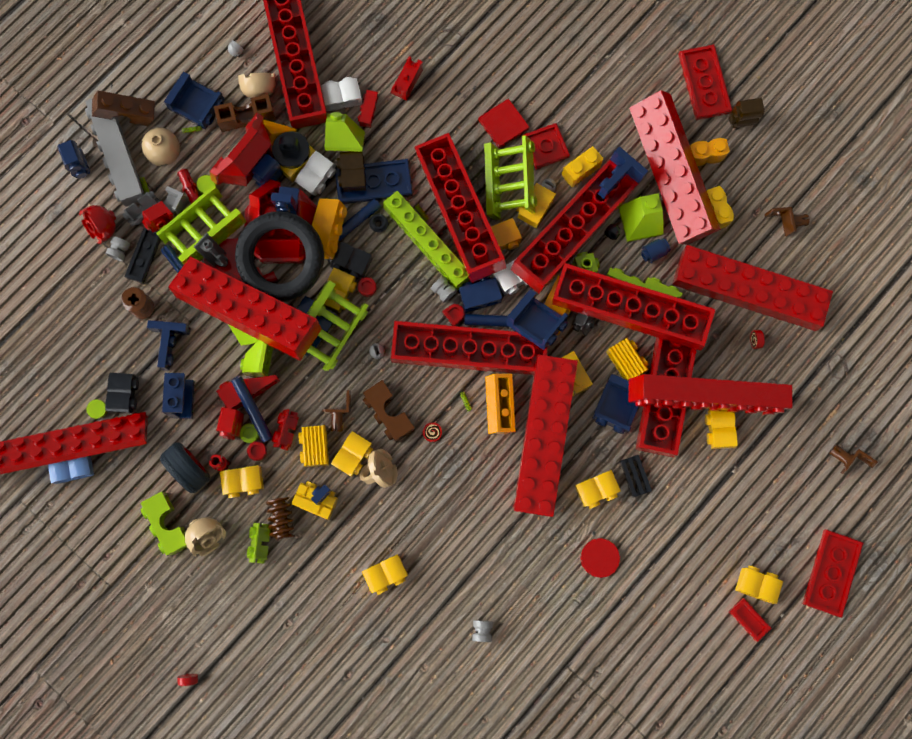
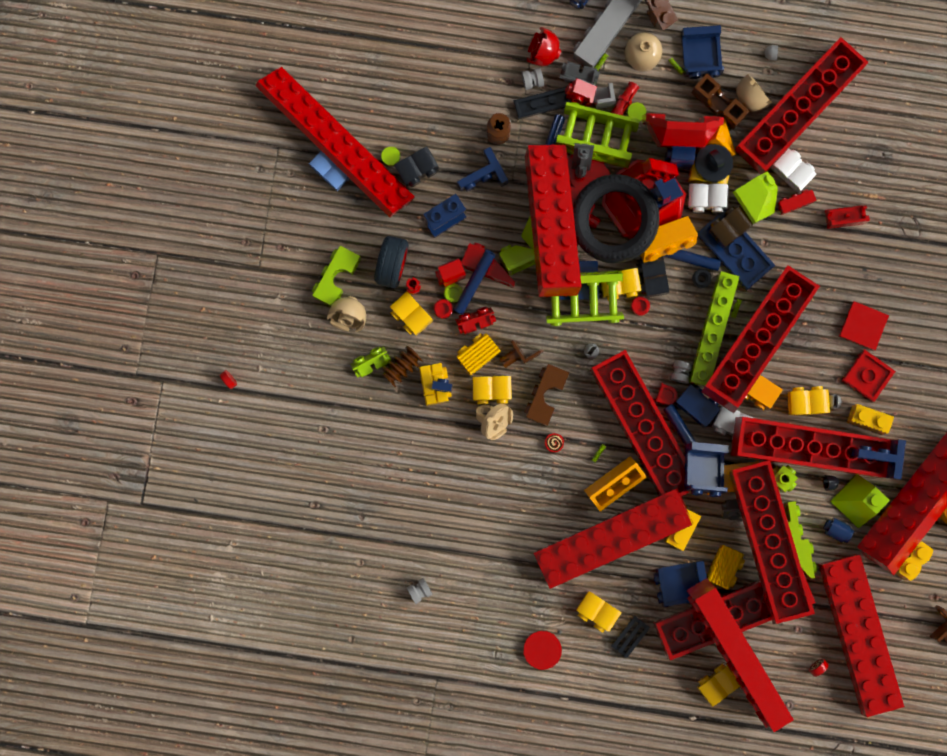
camera: 60 degrees right, 5 degrees up
(384, 574) = (413, 481): yellow brick -> none
(493, 172) = (813, 346): lime fence -> none

